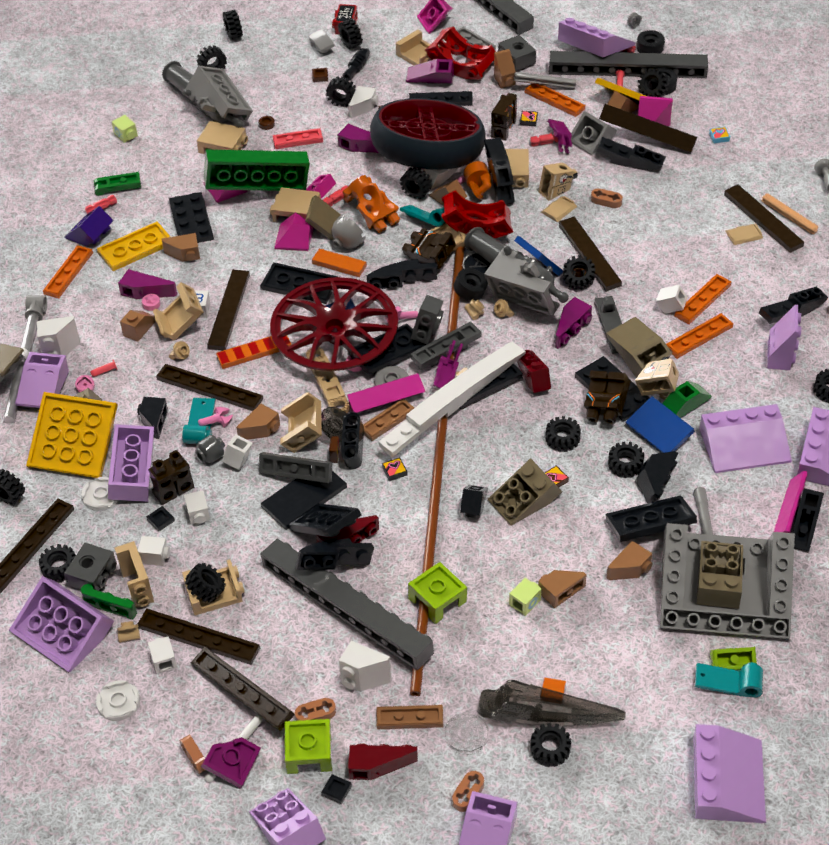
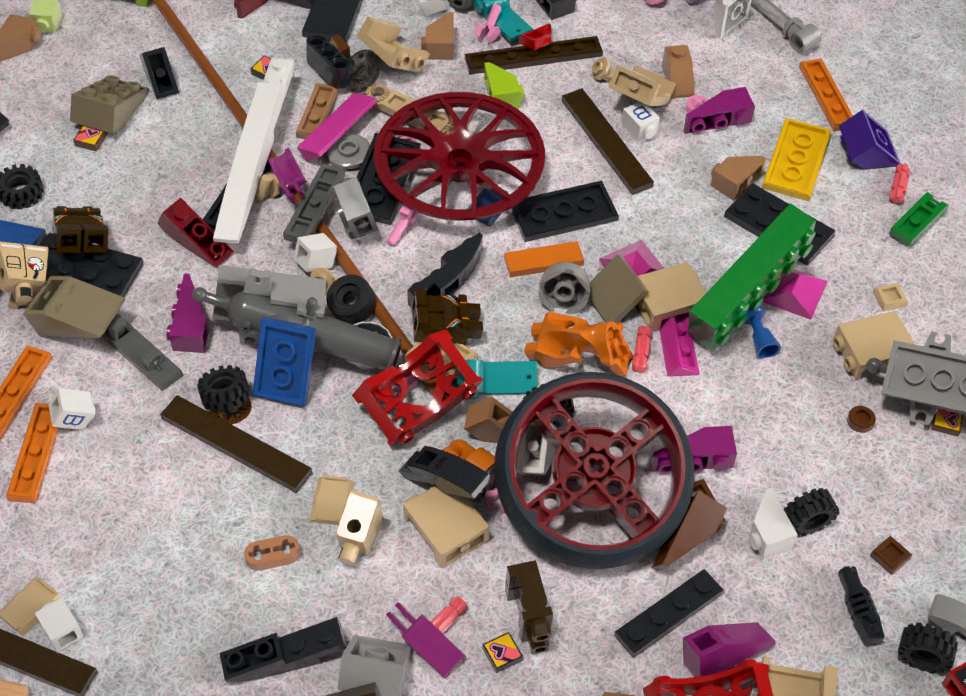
camera: 140 degrees right, 5 degrees up
(102, 369) = (652, 27): coral piece -> none
(182, 161) = (890, 297): none -> tan tile
(195, 389) = (536, 38): none -> red tile
(248, 352) = (536, 104): orange tile -> none
(259, 366) = (502, 85): none -> lime slope
(295, 467) = (338, 9): dark grey hinge -> none
(297, 138) = (790, 416): coral tile -> none
(469, 313) = (315, 252): none -> white brick
(566, 426) = (110, 190): black tyre -> none
(733, 211) = (59, 624): none -> white brick

